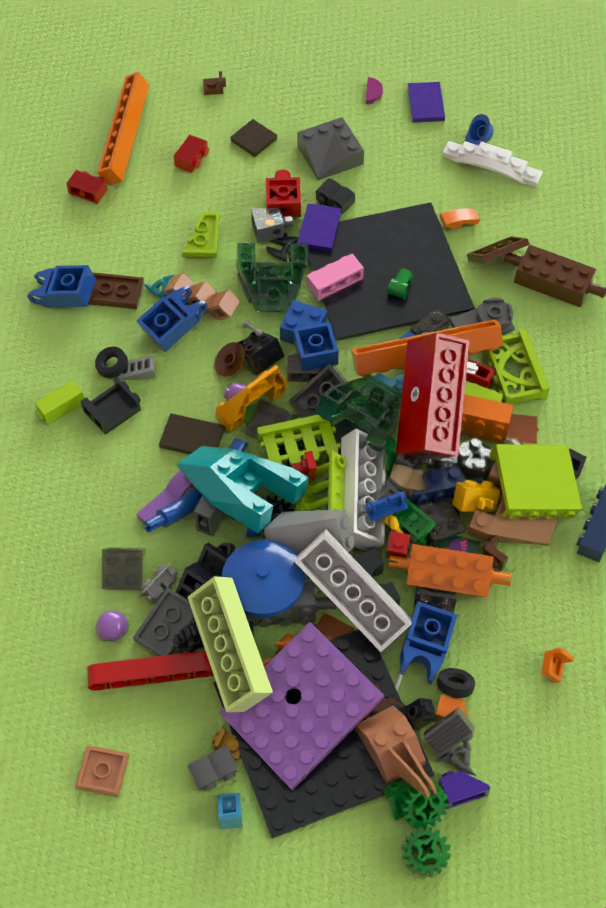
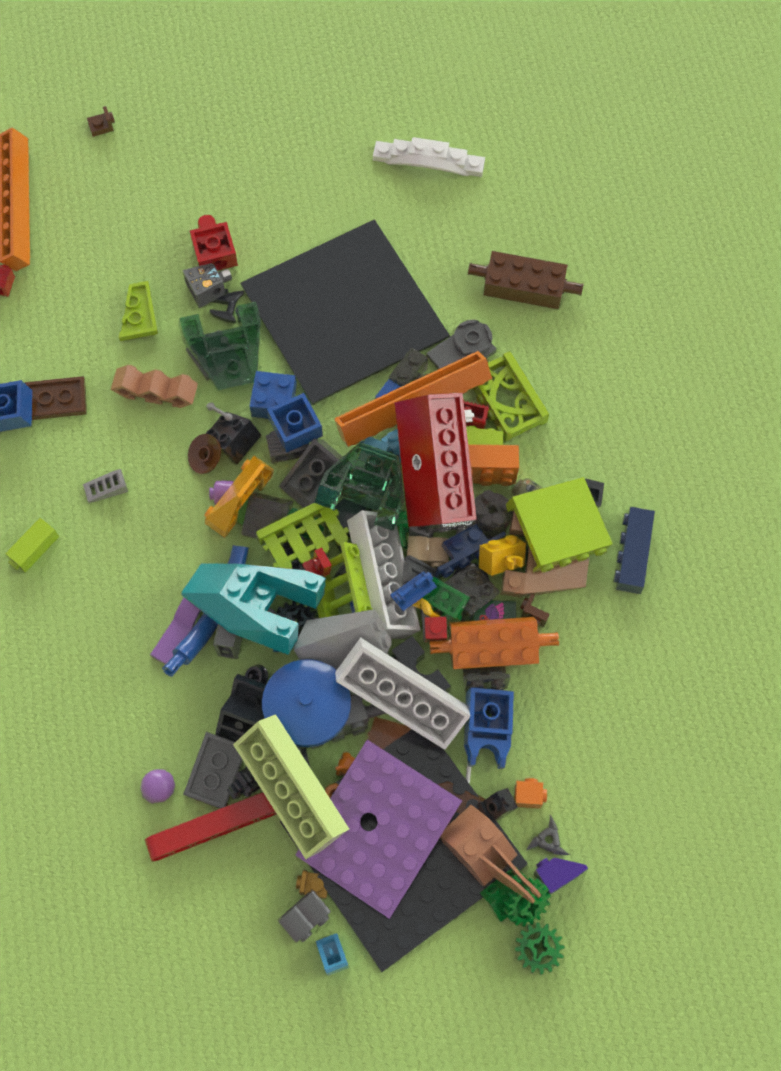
camera: 15 degrees left, 10 degrees up
(102, 771) = (190, 946): nougat tile -> none
(105, 355) = (66, 479): black tyre -> none
(112, 406) = (90, 536): black panel -> none
(122, 568) = (151, 718): clear smoke bracket -> none
(152, 588) = (196, 717): light grey hinge -> none
(161, 282) = (98, 386): teal piece -> none
(171, 318) = (134, 417): blue brick -> none
(189, 434) = (184, 550): dark brown tile -> none
(191, 153) = (97, 214): red brick -> none
(253, 137) = (161, 179): dark brown tile -> none
(319, 227) = (261, 275): dark purple tile -> none
(330, 148) = (250, 176): dark grey slope -> none
(335, 195) = (269, 234): black brick -> none
(335, 276) = (293, 332): bright pink brick -> none
(374, 90) = (280, 94): magenta tile -> none
(400, 285) = (365, 328): green piece -> none
(426, 102) = (340, 97): dark purple tile -> none
(449, 732) = (534, 819): dark grey brick -> none
(455, 690) = (527, 772): black tyre -> none
(457, 217) = (406, 232): orange slope -> none
(479, 130) = (407, 123): blue piece -> none
(497, 249) = (459, 262): reddish brown tile -> none
(523, 428) = (532, 463): clear red piece -> none
(554, 663) = (620, 718): orange bracket -> none

